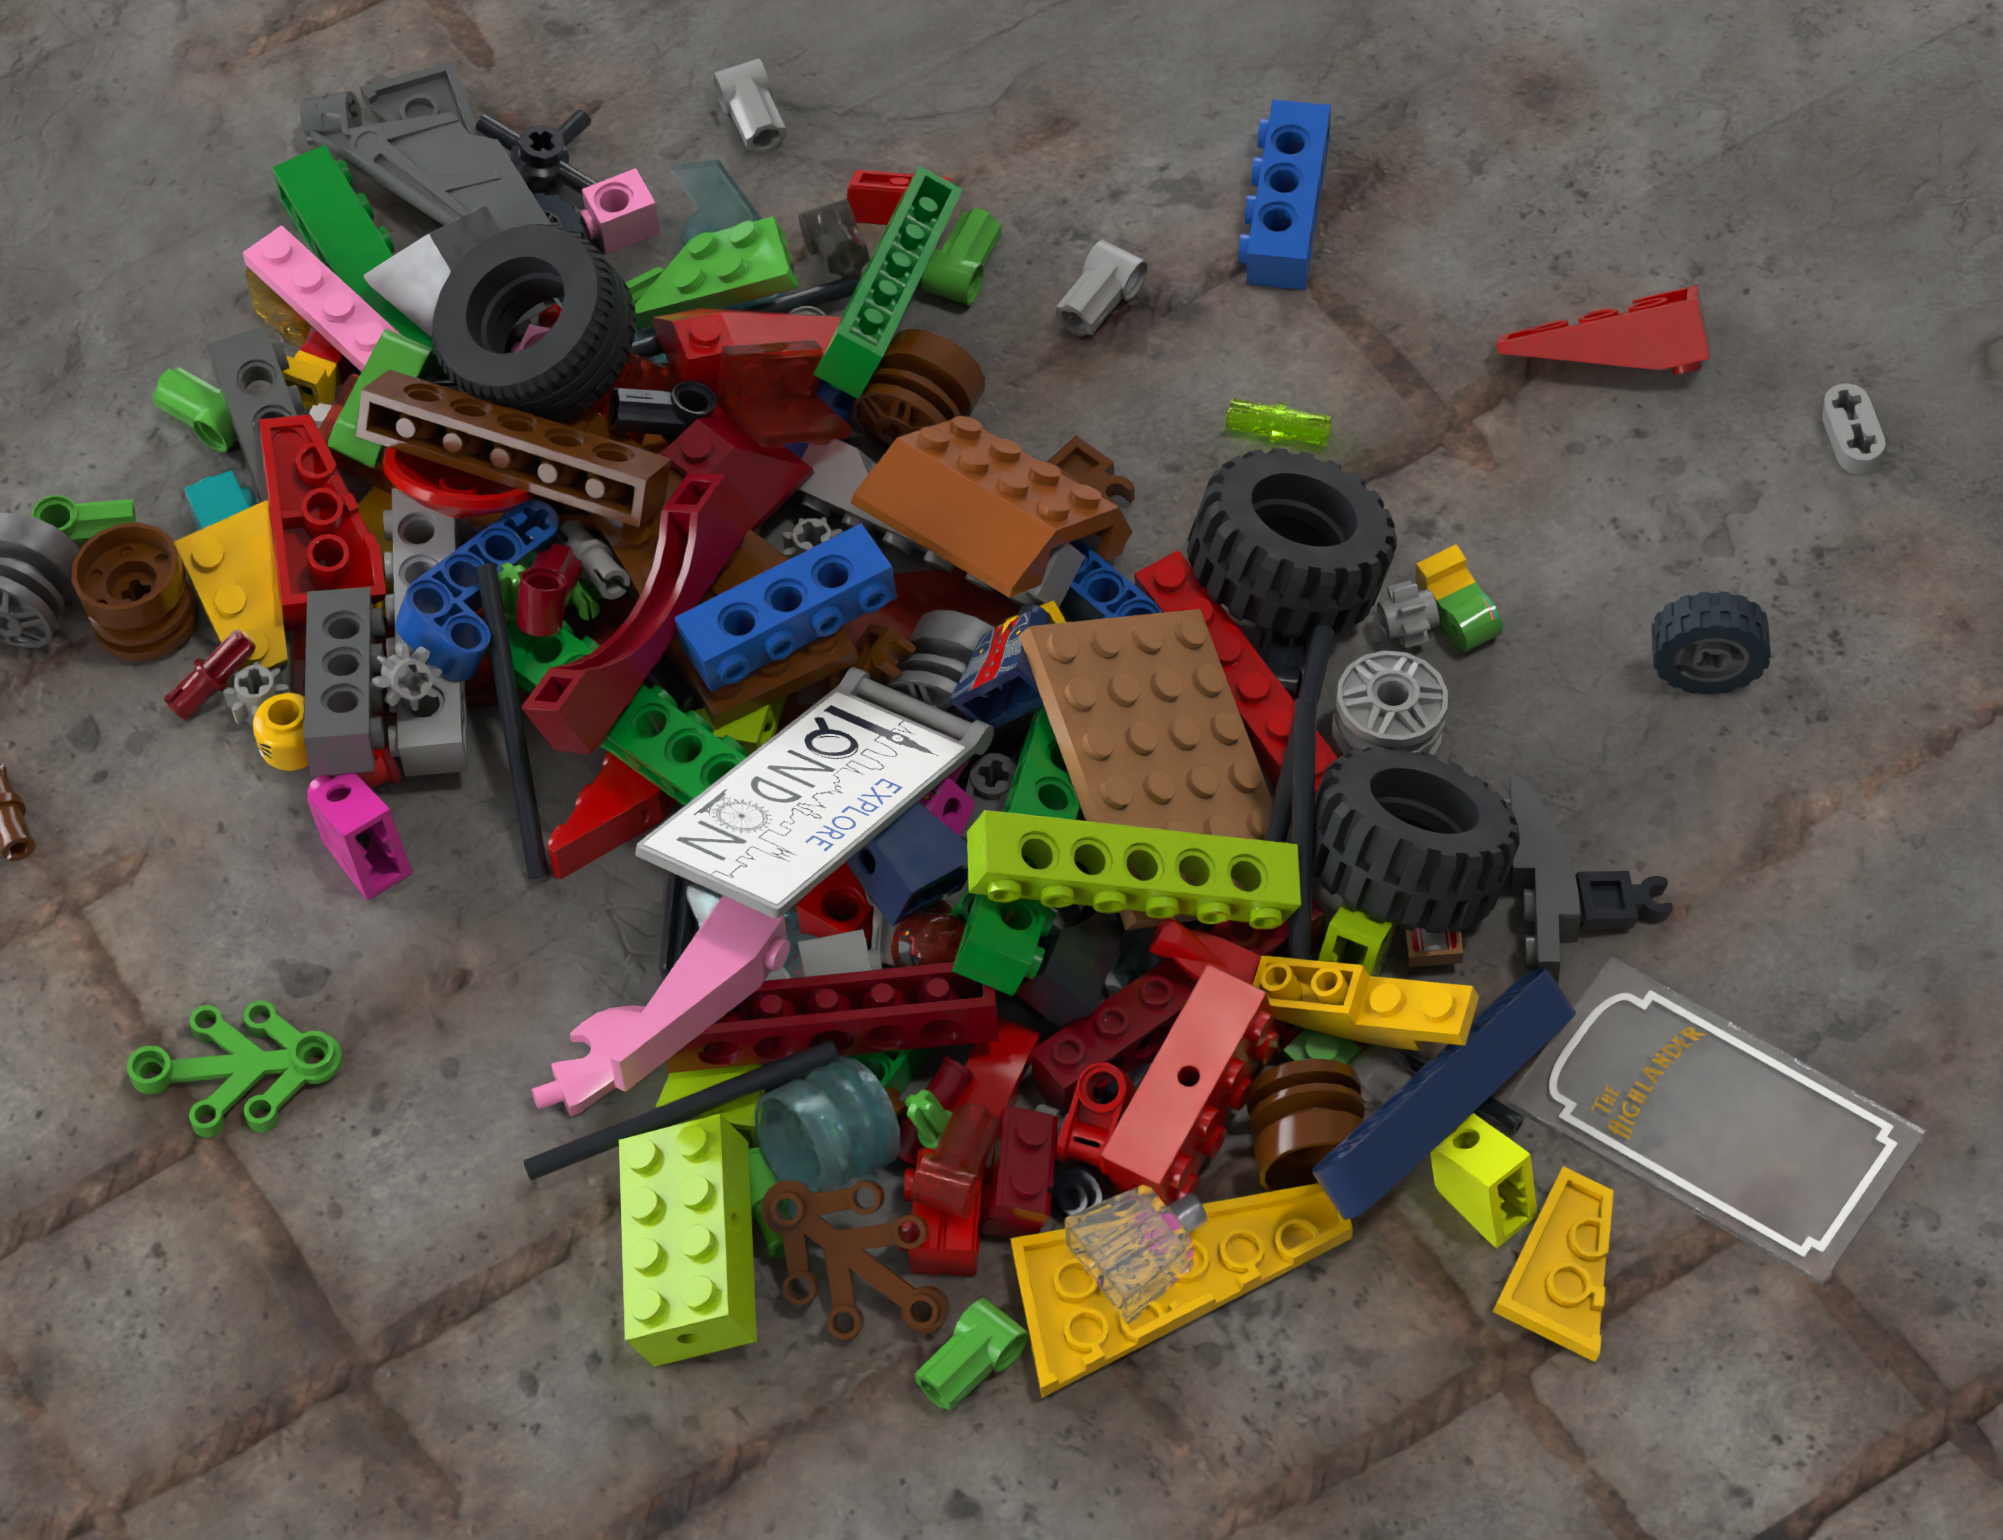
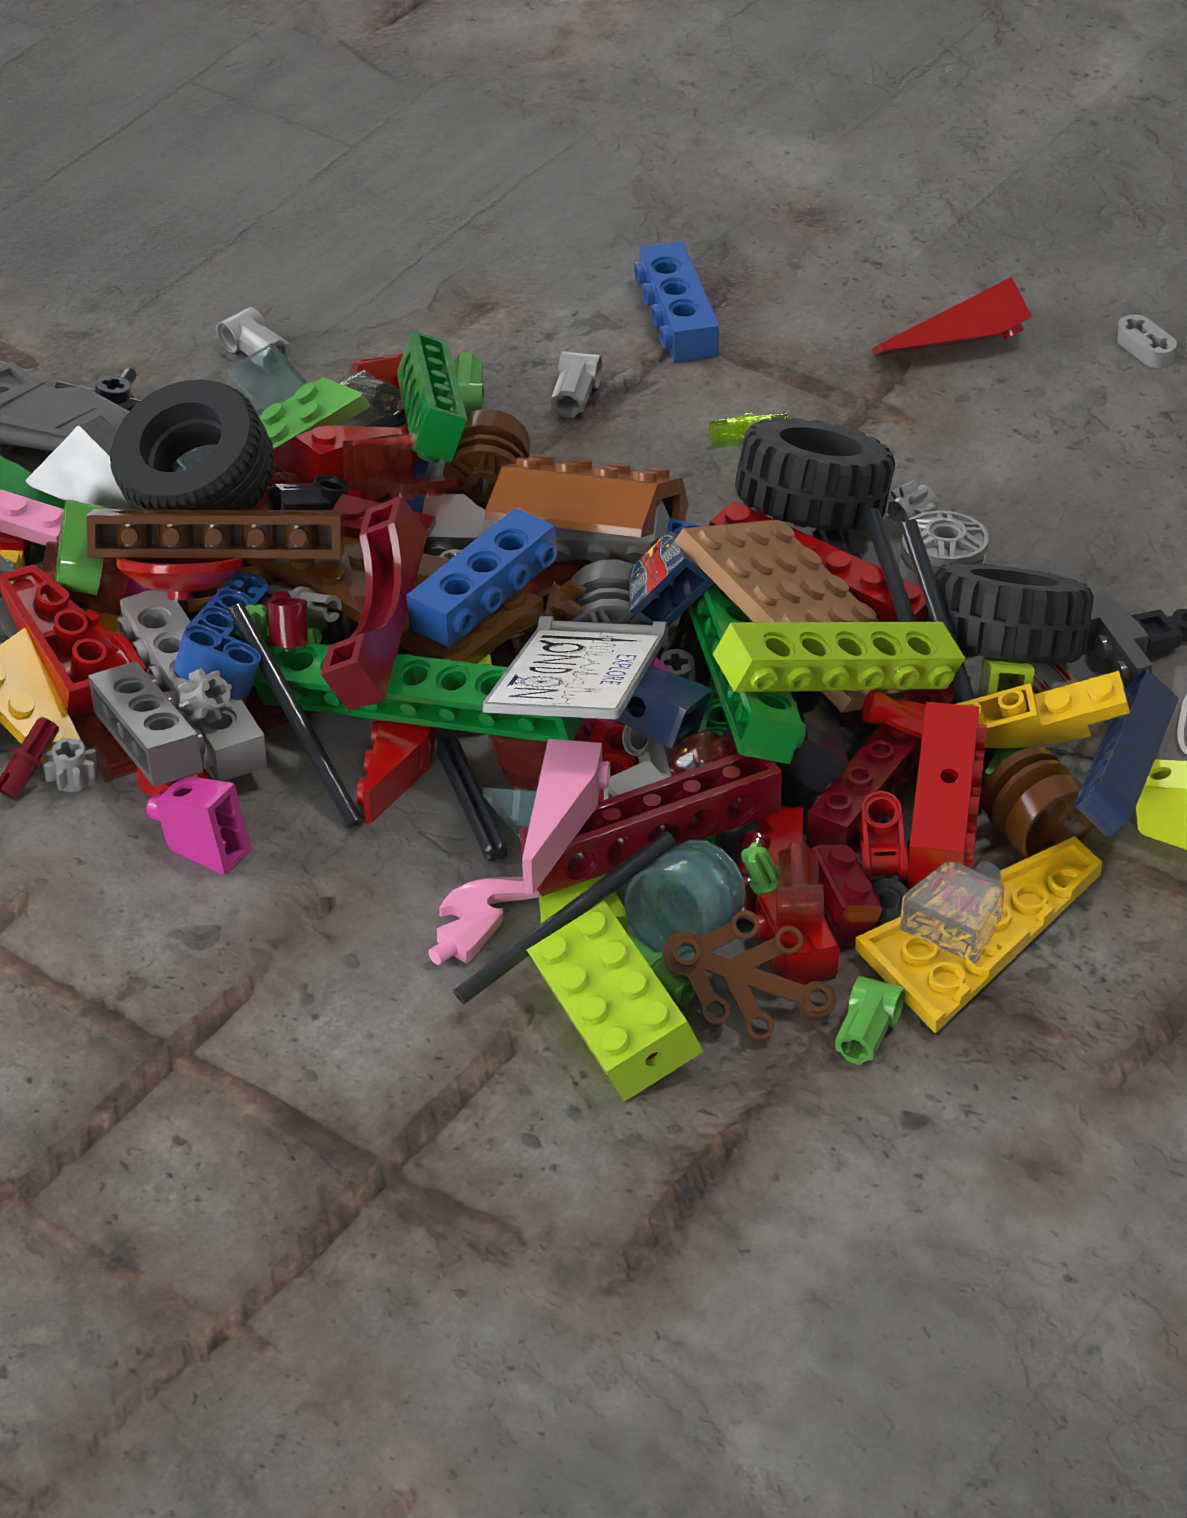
camera: 25 degrees left, 15 degrees down
(242, 1067) = (233, 981): bright green plant -> none
(280, 731) = (110, 777): yellow head -> none
(1463, 608) = (951, 493): leg -> none
(1711, 642) = (1138, 464): black wheel -> none

